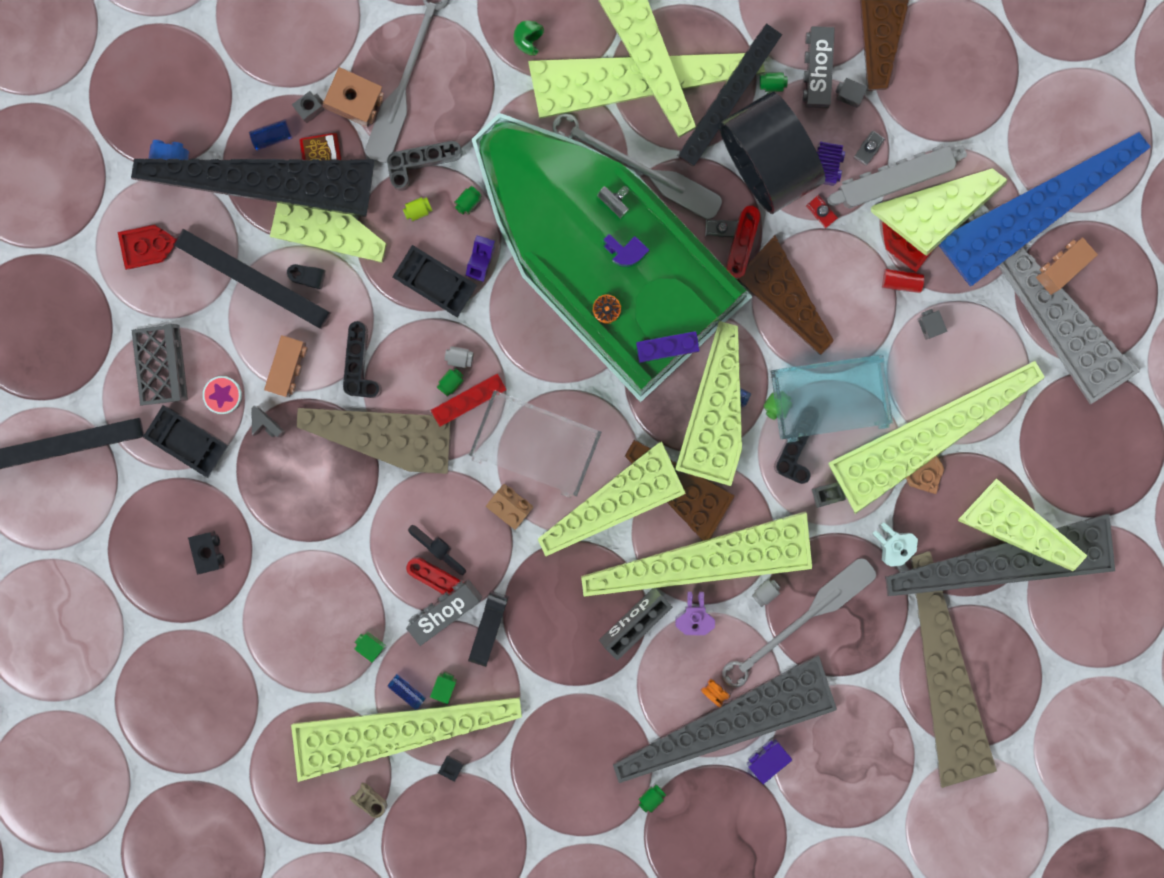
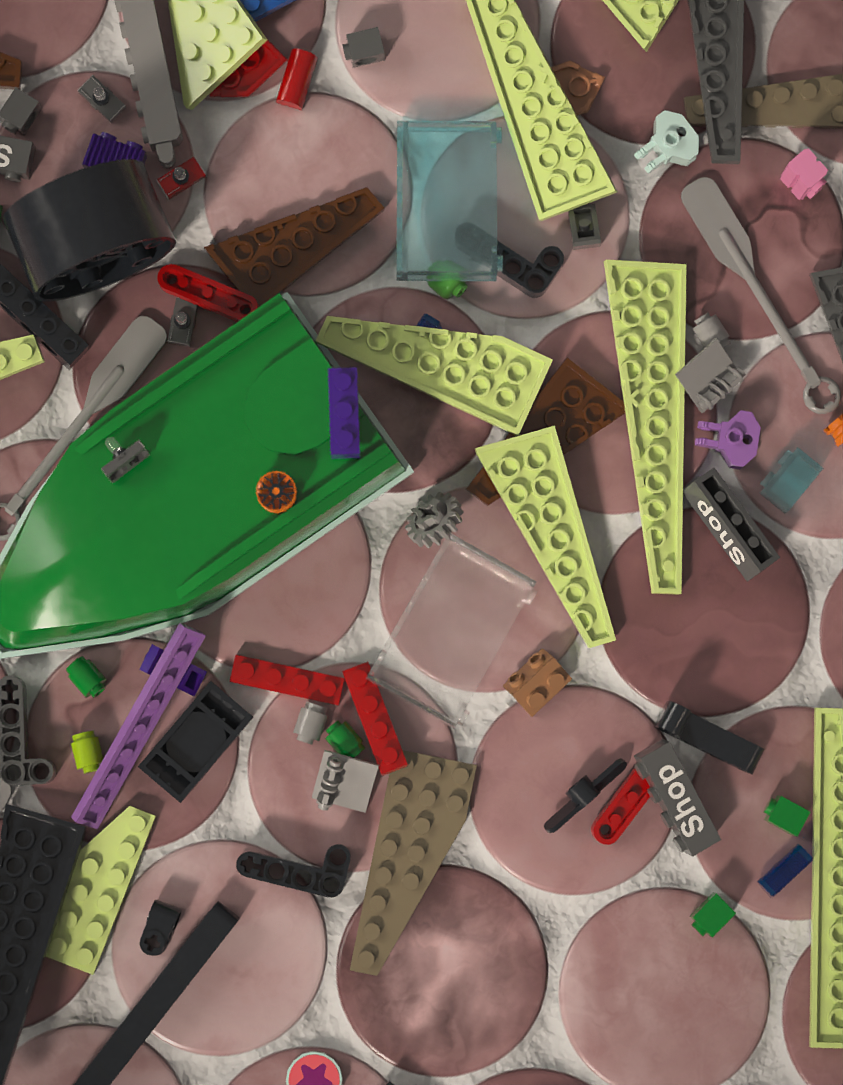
camera: 90 degrees left, 5 degrees down
(261, 420) = (358, 1027): dark grey slope -> none
(286, 366) = (286, 977): nougat brick -> none
(422, 385) = (344, 782): none -> light grey hinge
(438, 240) = (138, 726): none -> medium lavender plate
(486, 336) = (287, 680): none -> red plate
(609, 420) = (434, 519): none -> light grey gear
(627, 255) = (205, 451): dark purple brick -> none
(673, 660) = (790, 480): none -> clear light blue brick
(736, 595) = (709, 376): none -> light grey hinge
(886, 642) = (804, 175): none -> bright pink brick

